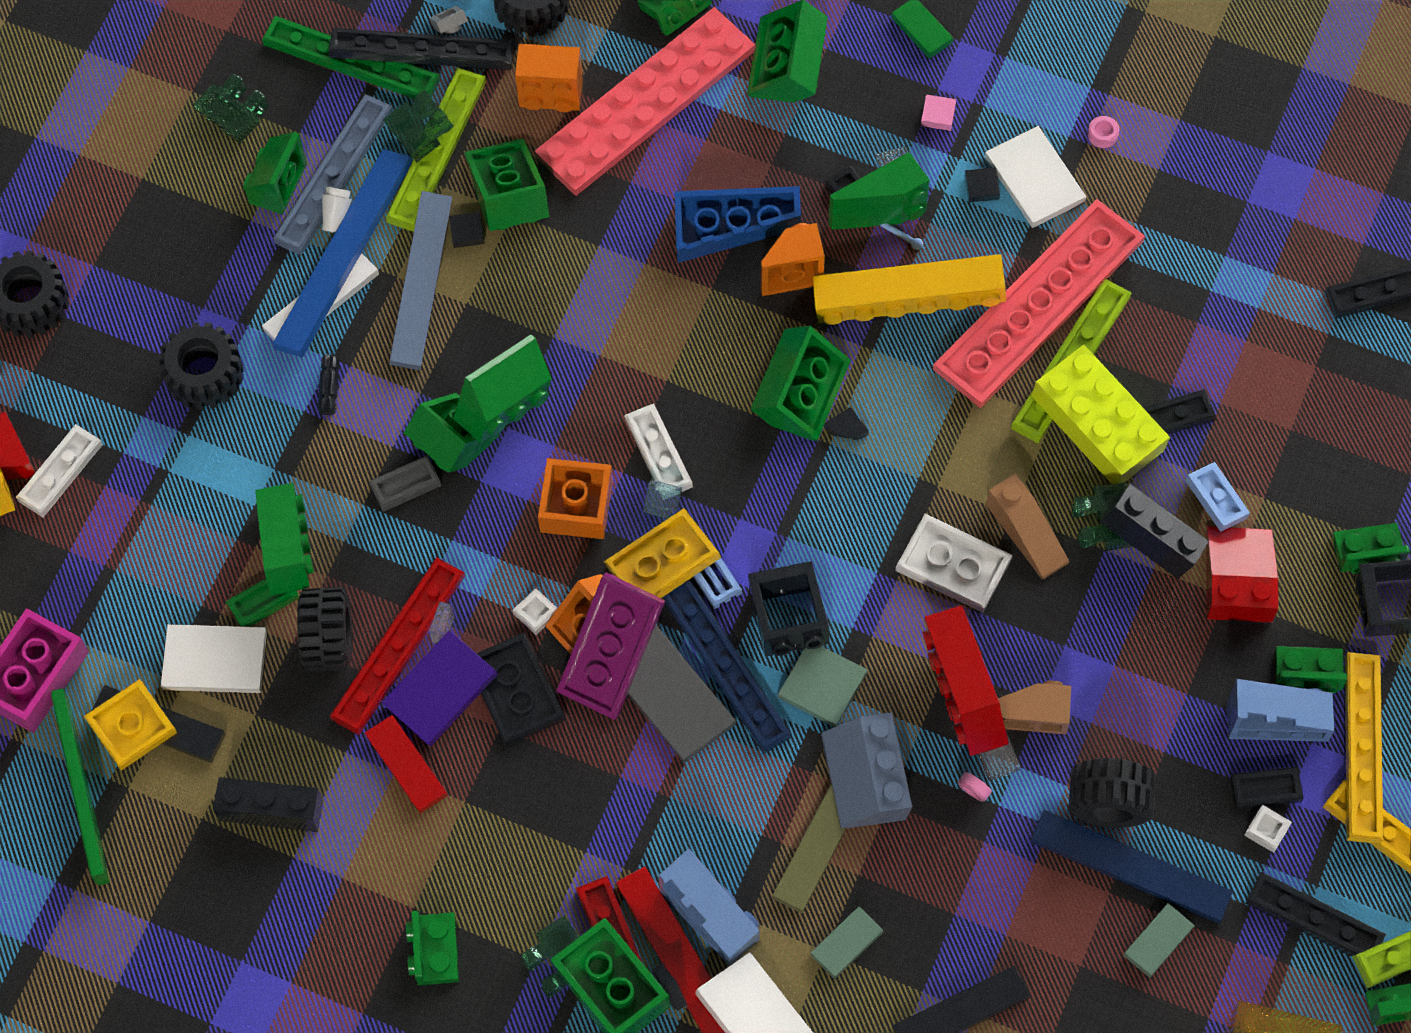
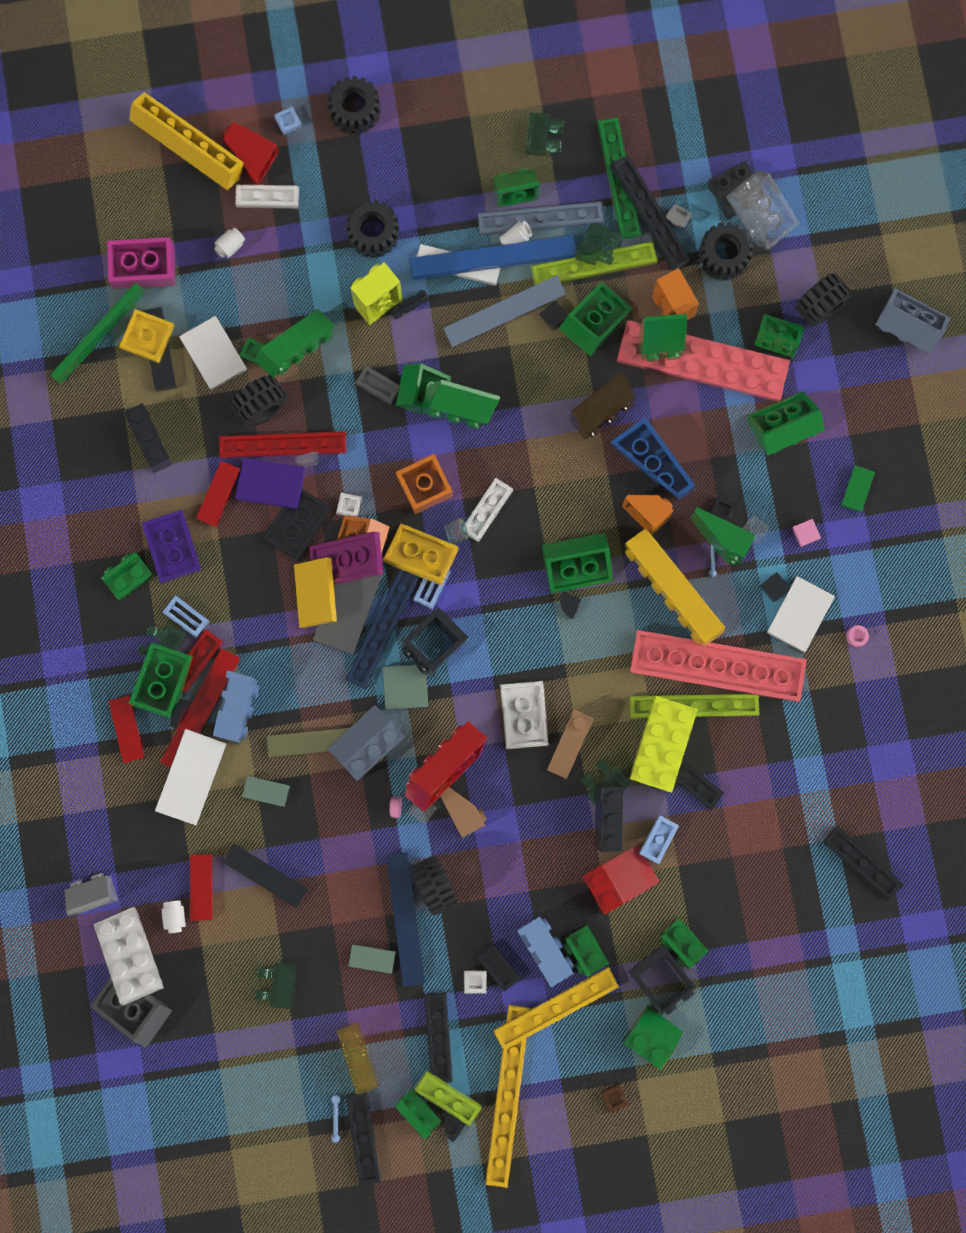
camera: 55 degrees right, 15 degrees up
(85, 549) = (229, 243): none -> white brick
(290, 402) = (376, 292): none -> neon yellow brick
(434, 864) = (171, 546): none -> dark purple plate
(545, 917) = (200, 627): none -> light blue tile
(590, 111) = (663, 337): none -> green slope
(624, 716) = (315, 592): none -> yellow tile
(625, 237) = (603, 407): none -> dark brown slope

